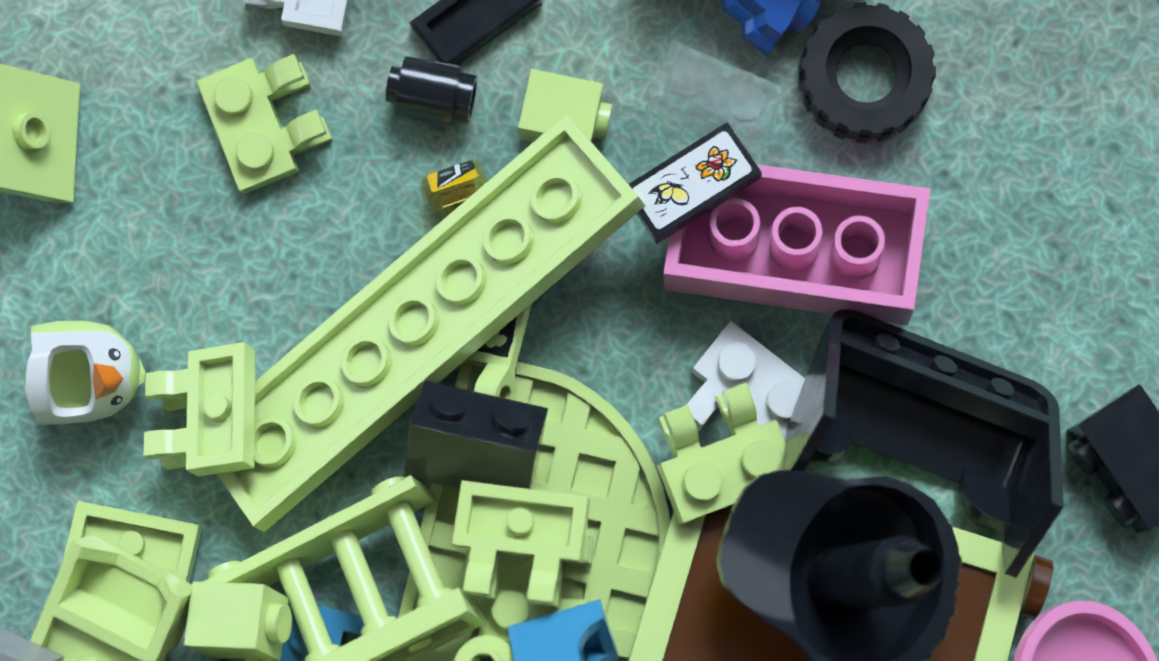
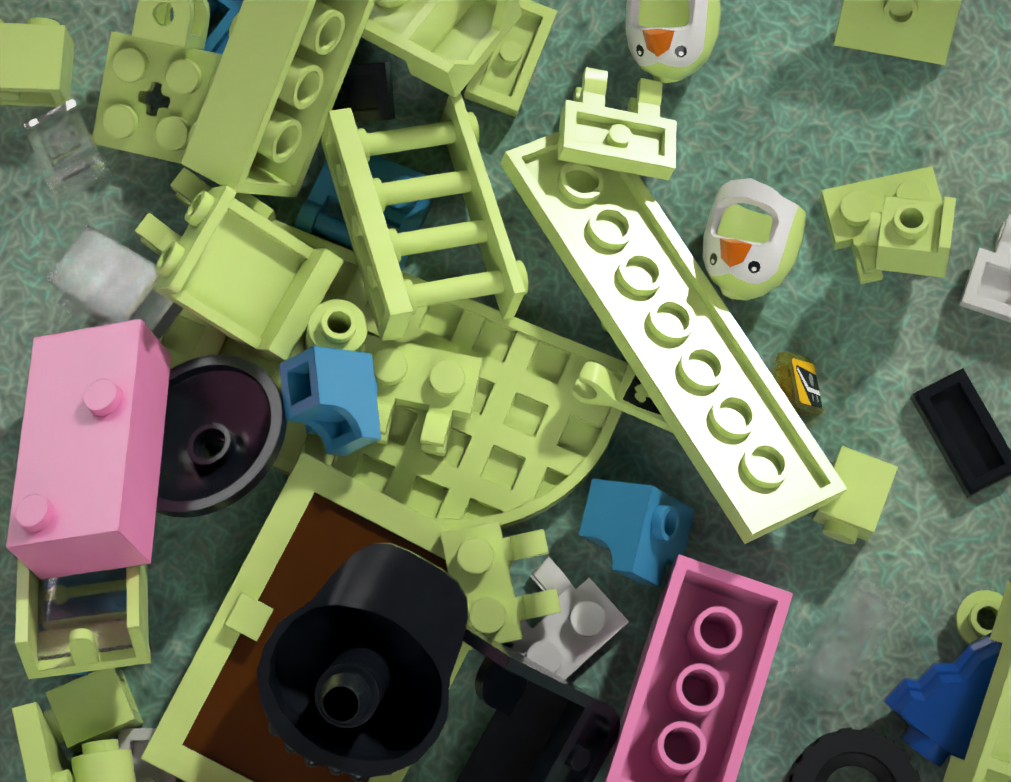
camera: 100 degrees right, 5 degrees down
(237, 621) = (421, 122): yellowish green brick -> none
(302, 91) = (912, 235): none -> yellowish green brick
(311, 252) = (747, 249): none -> piece
(431, 91) = (891, 376): black brick -> none
(473, 438) = (547, 355): black brick -> none
(522, 524) = (463, 381): yellowish green plate -> none
(637, 325) = (638, 526): none -> dark azure brick
(694, 182) = (761, 595): tile -> none

